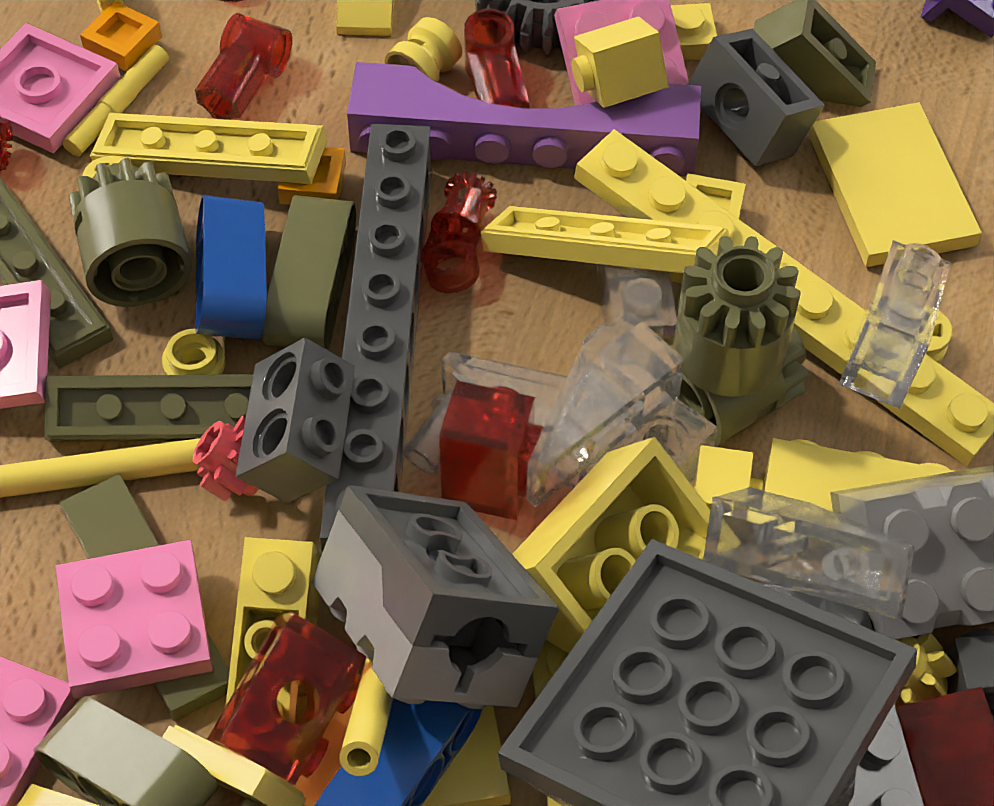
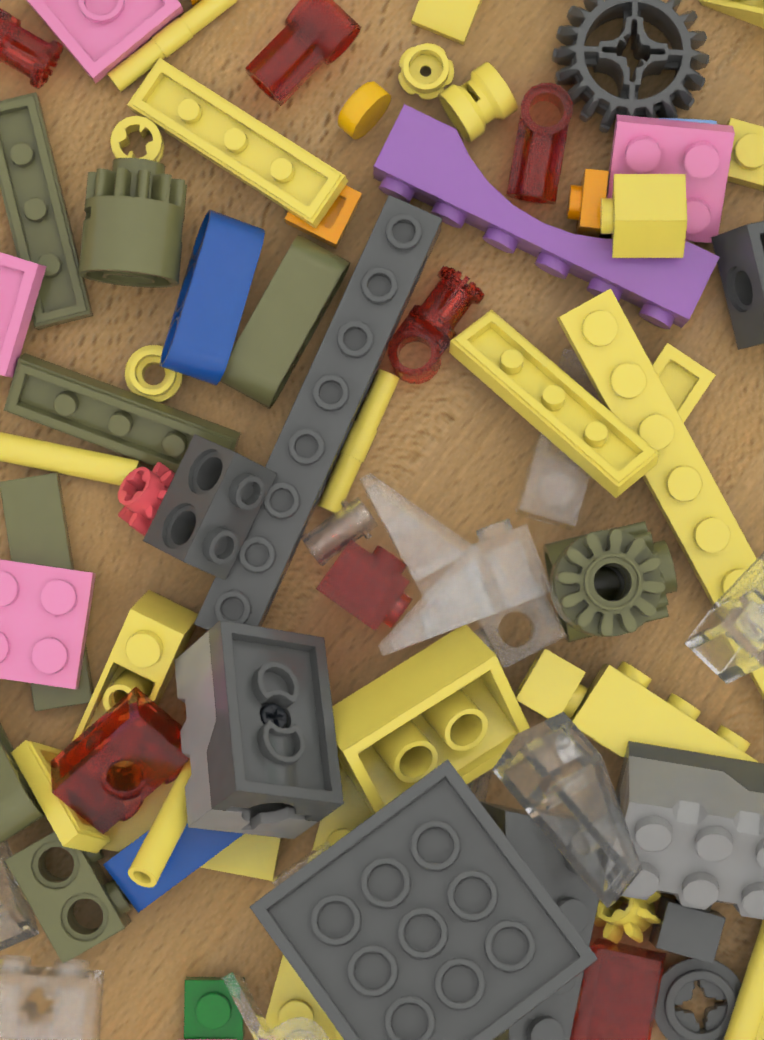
camera: 20 degrees right, 30 degrees up
(320, 92) = (363, 109): none -> yellow tile
(362, 45) = (428, 56): none -> light yellow plate
(426, 353) = (359, 441): none -> light yellow piece
(559, 86) = (585, 202): none -> light orange plate

